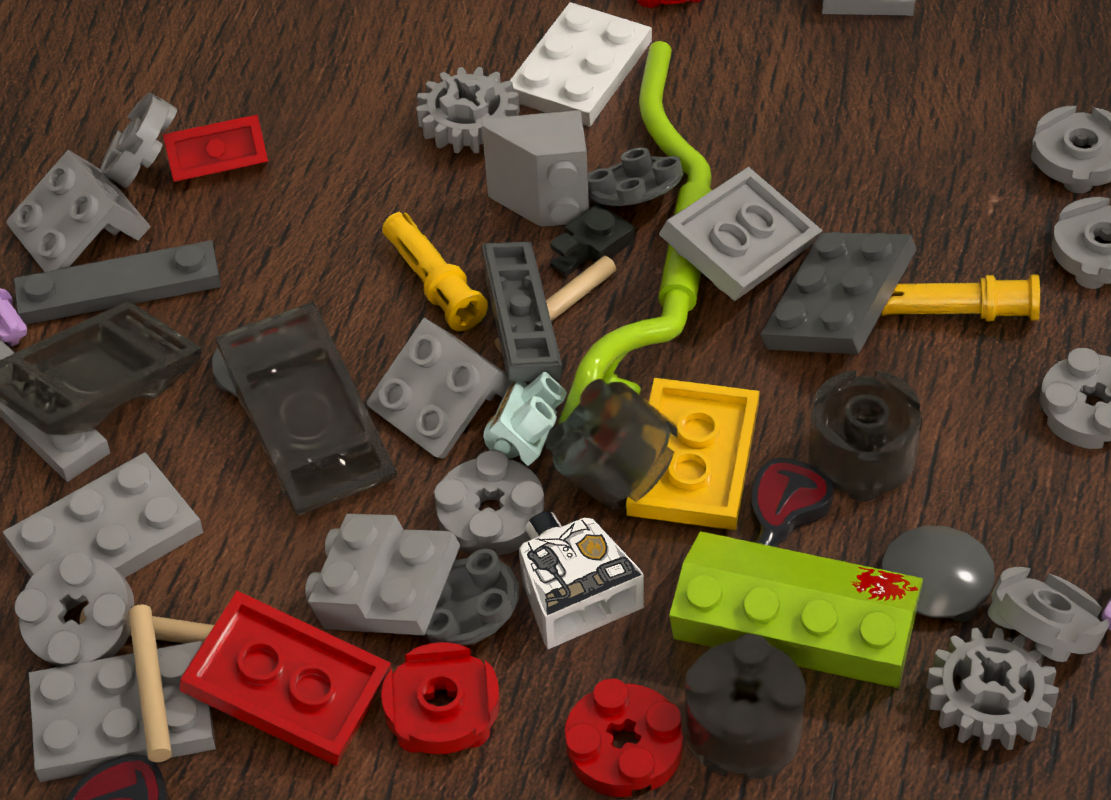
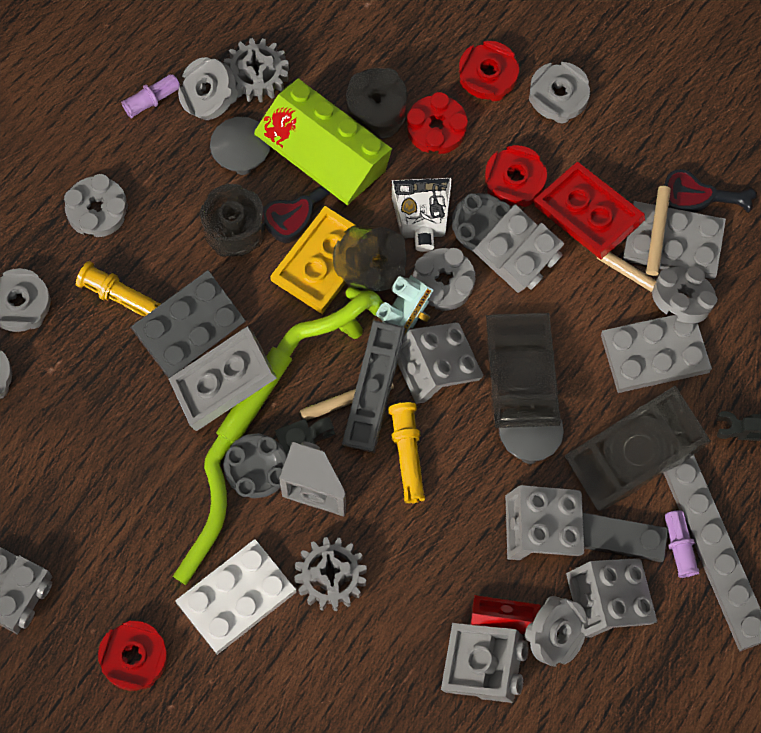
camera: 160 degrees left, 20 degrees up
(195, 244) = (544, 522): none -> light grey bracket
(221, 88) = (484, 662): none -> light grey plate

